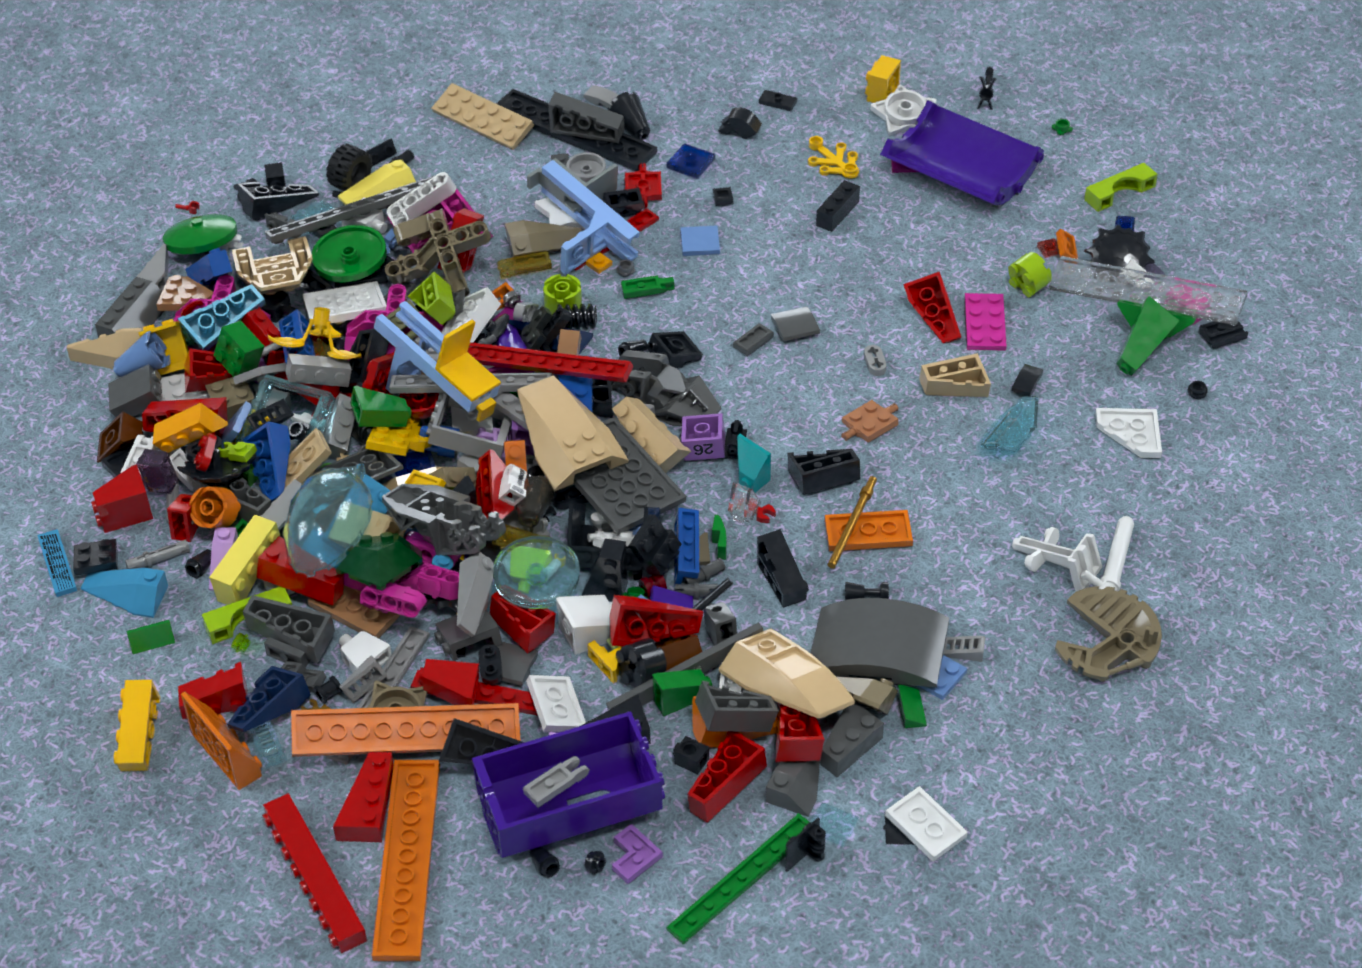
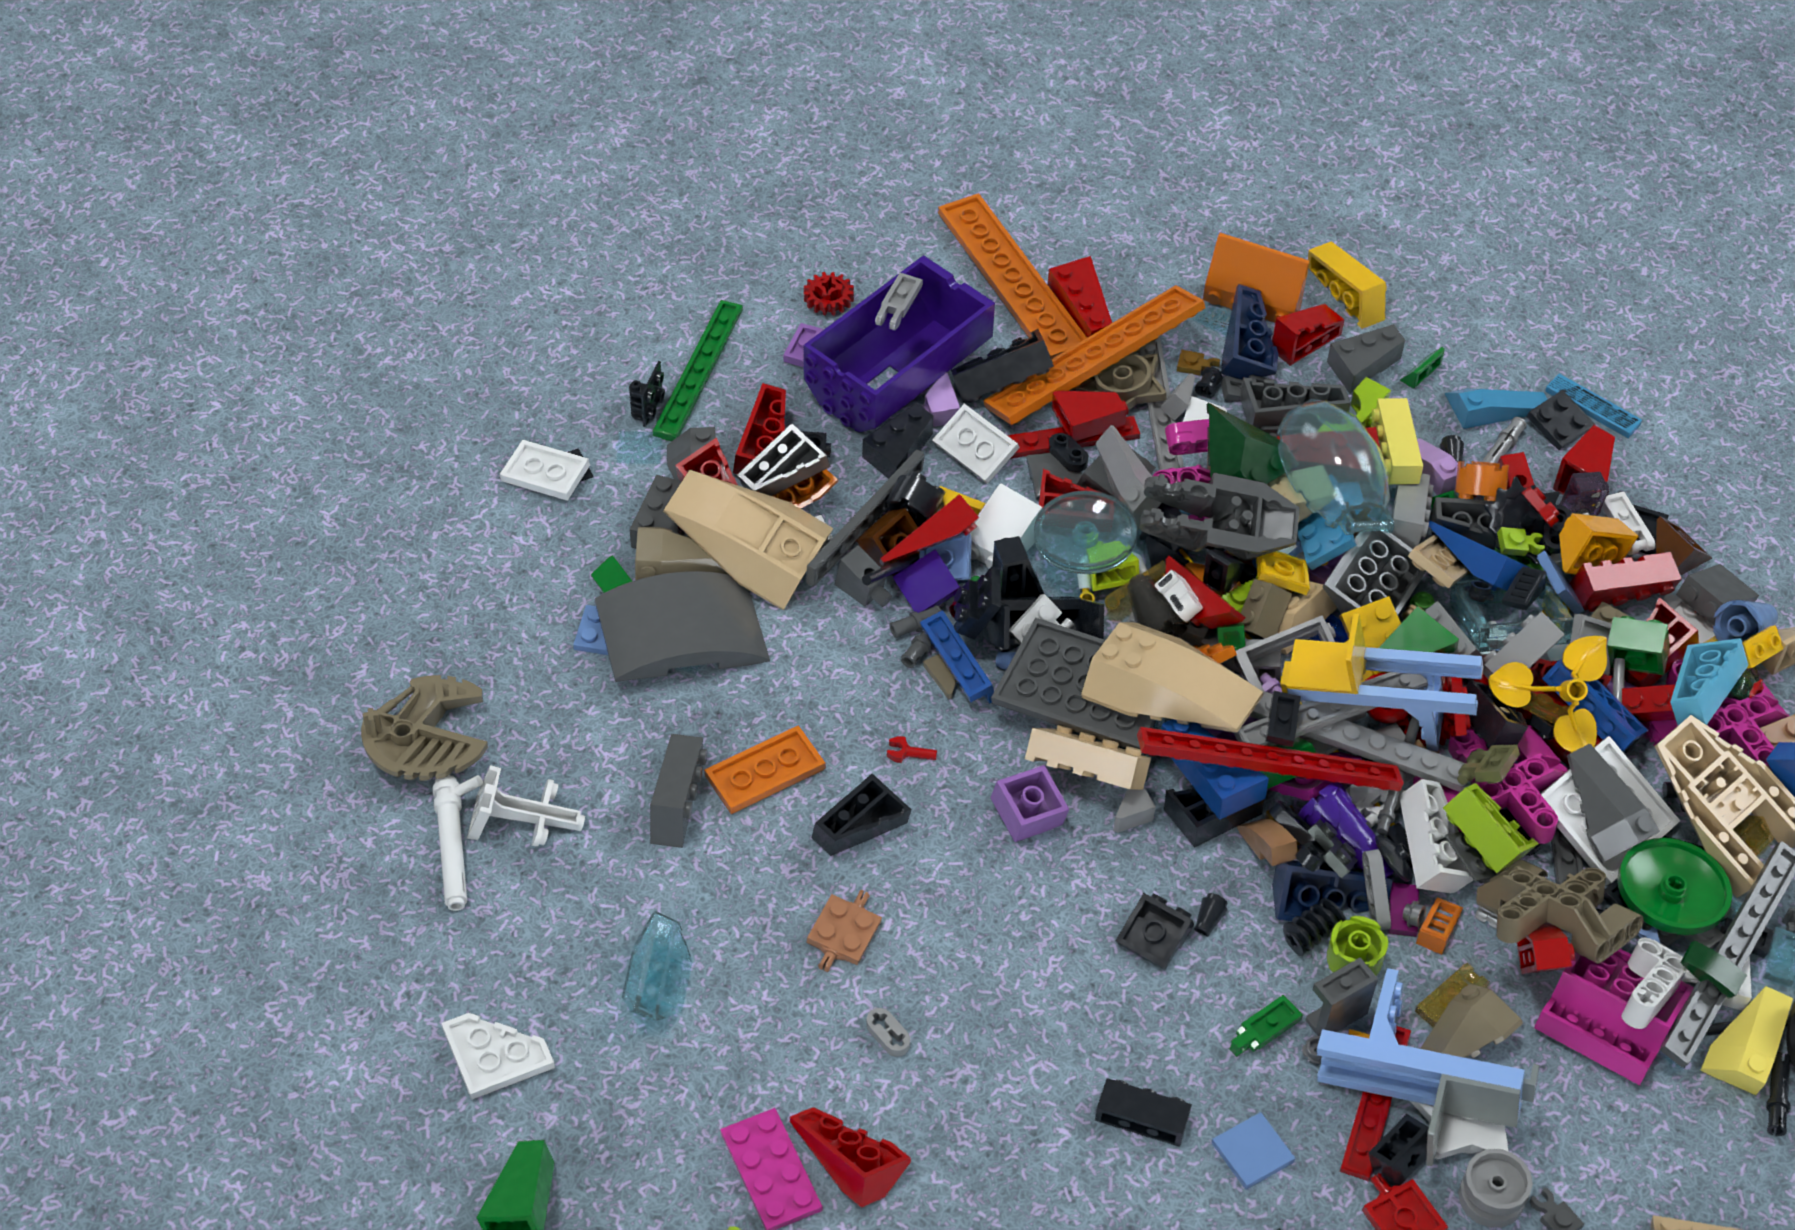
camera: 150 degrees right, 5 degrees up
(186, 657) = (1365, 355): none -> dark grey wedge
(315, 874) = (1082, 234): red brick -> none
(347, 290) = (1611, 809): none -> dark grey wedge
(381, 194) = (1710, 965): none -> dark green slope
(517, 372) = (1283, 718): none -> black plate
(582, 903) = (828, 293): none -> red gear
(598, 264) = (1344, 997): none -> dark grey panel
(666, 388) = (1098, 864): dark grey connector -> none
(676, 689) = (861, 487): green slope -> none
(719, 536) = (930, 692): green slope -> none
(731, 439) = (992, 828): black hinge -> none
(742, 503) = (924, 726): clear slope -> none
(750, 270) = (1143, 1112): none -> black brick
(753, 339) = (1067, 996): dark grey plate -> none
(753, 464) = (948, 787): teal slope -> none
(780, 568) = (834, 669): black wedge -> none
(795, 323) = (1028, 1047): dark grey slope -> none
(856, 591) = (737, 683): black piece -> none
(865, 494) = (789, 801): pearl gold bar -> none
(939, 530) = (676, 790): none -> dark grey wedge
(956, 377) = (763, 1029): tan wedge -> none
(967, 654) = (585, 677): light grey slope -> none
(1027, 380) = (667, 1081): black slope -> none
(1197, 389) = (422, 1157): black plate -> none

